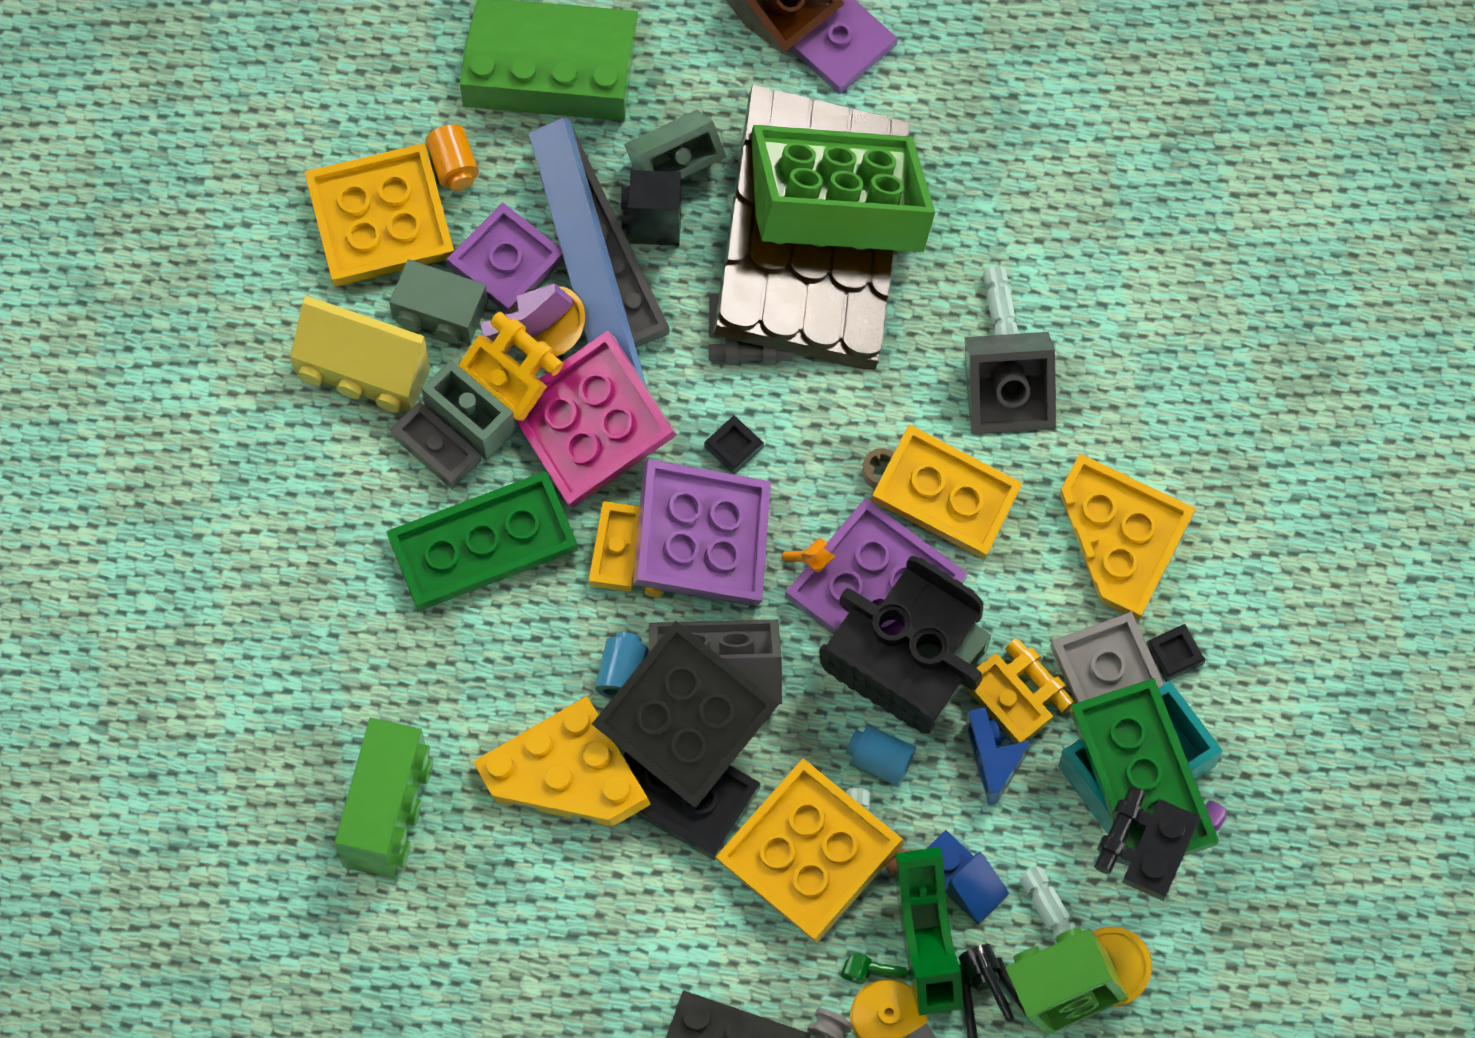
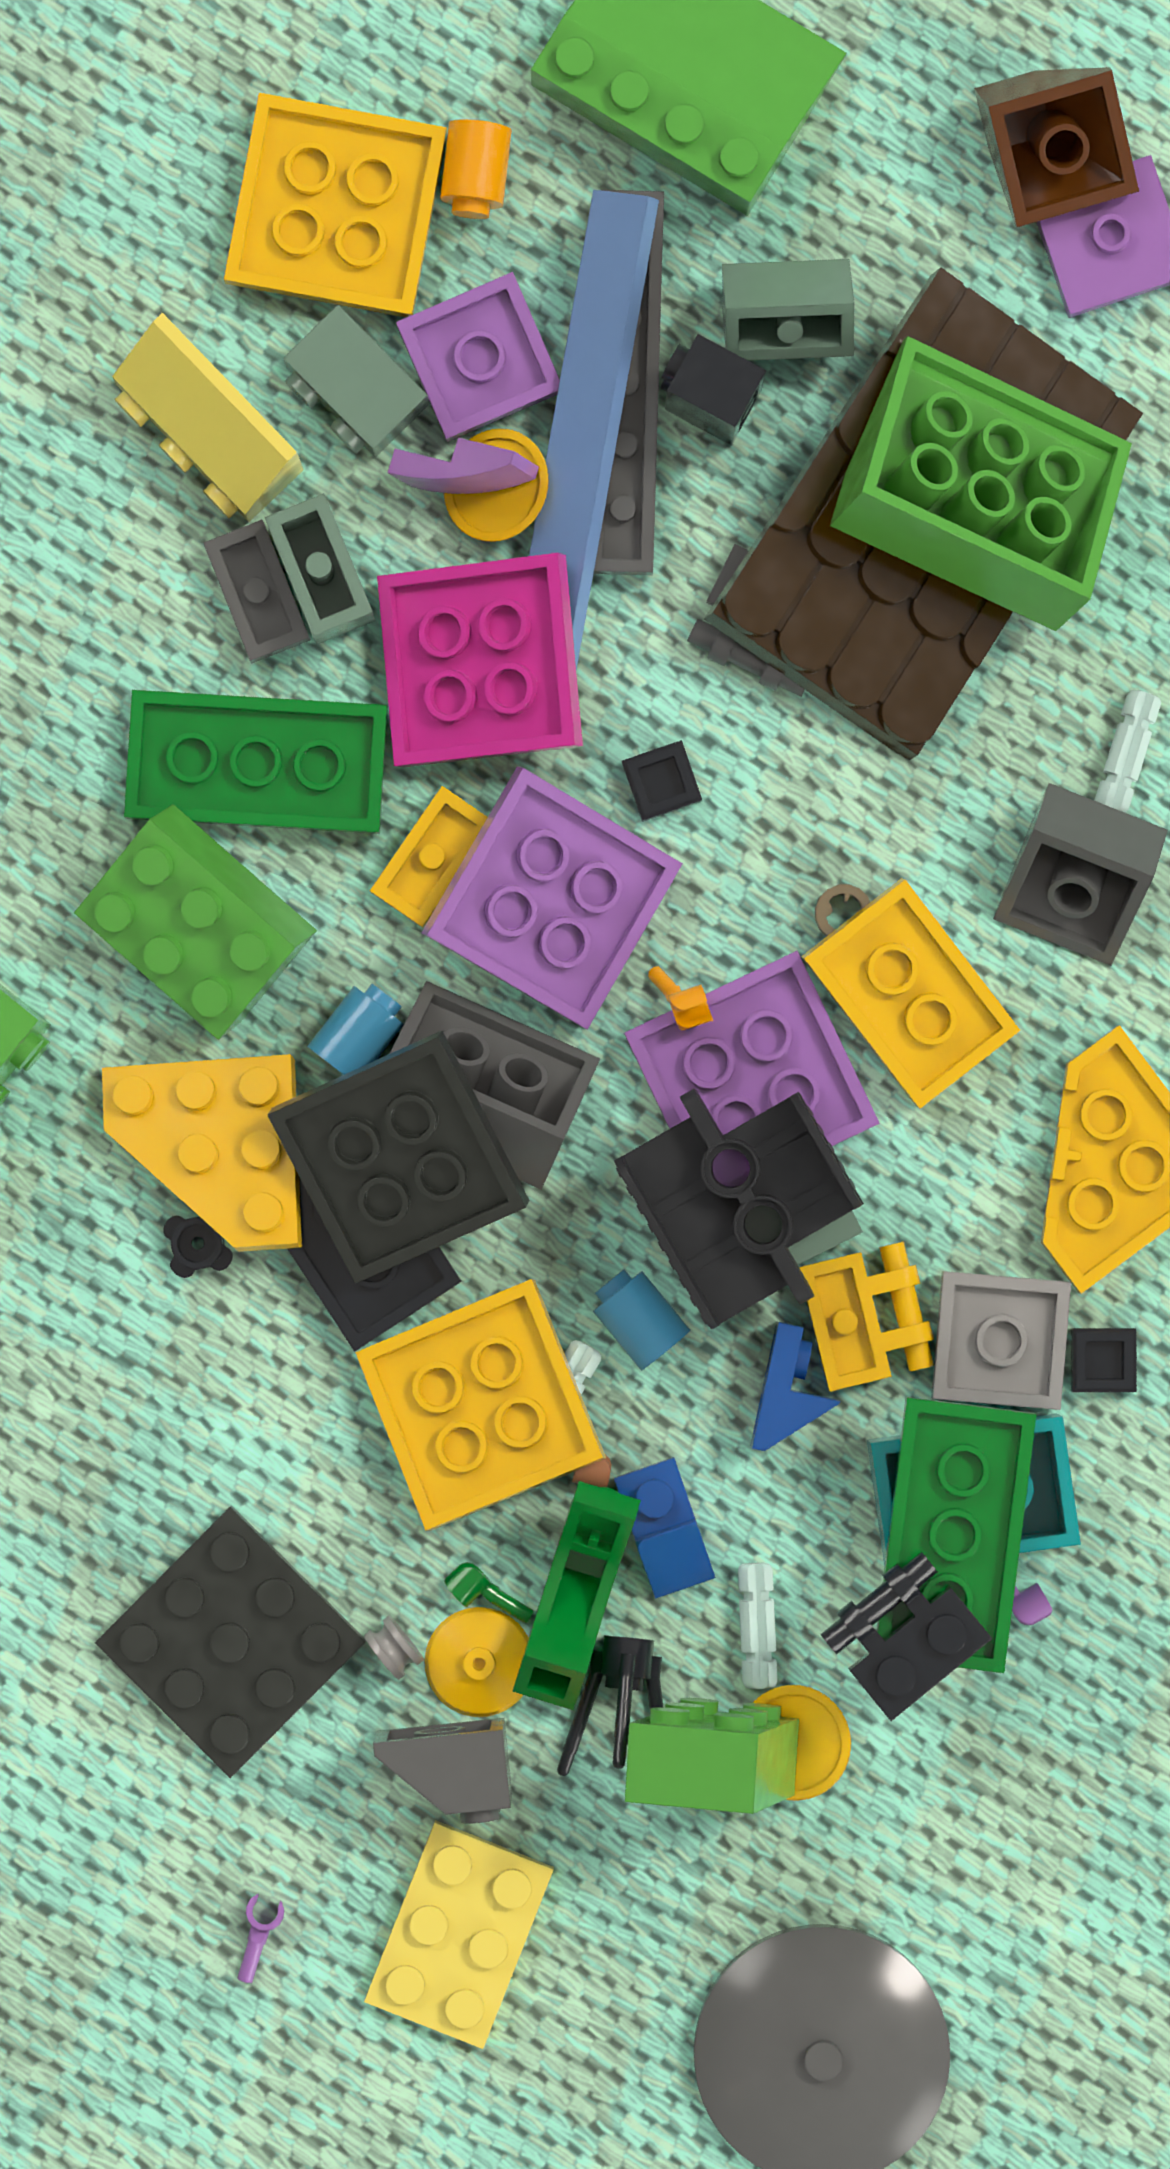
camera: 25 degrees right, 20 degrees up
(490, 642) = (195, 921): none -> bright green brick
(501, 374) = (384, 543): yellow plate -> none
(580, 852) = (186, 1257): none -> black plate

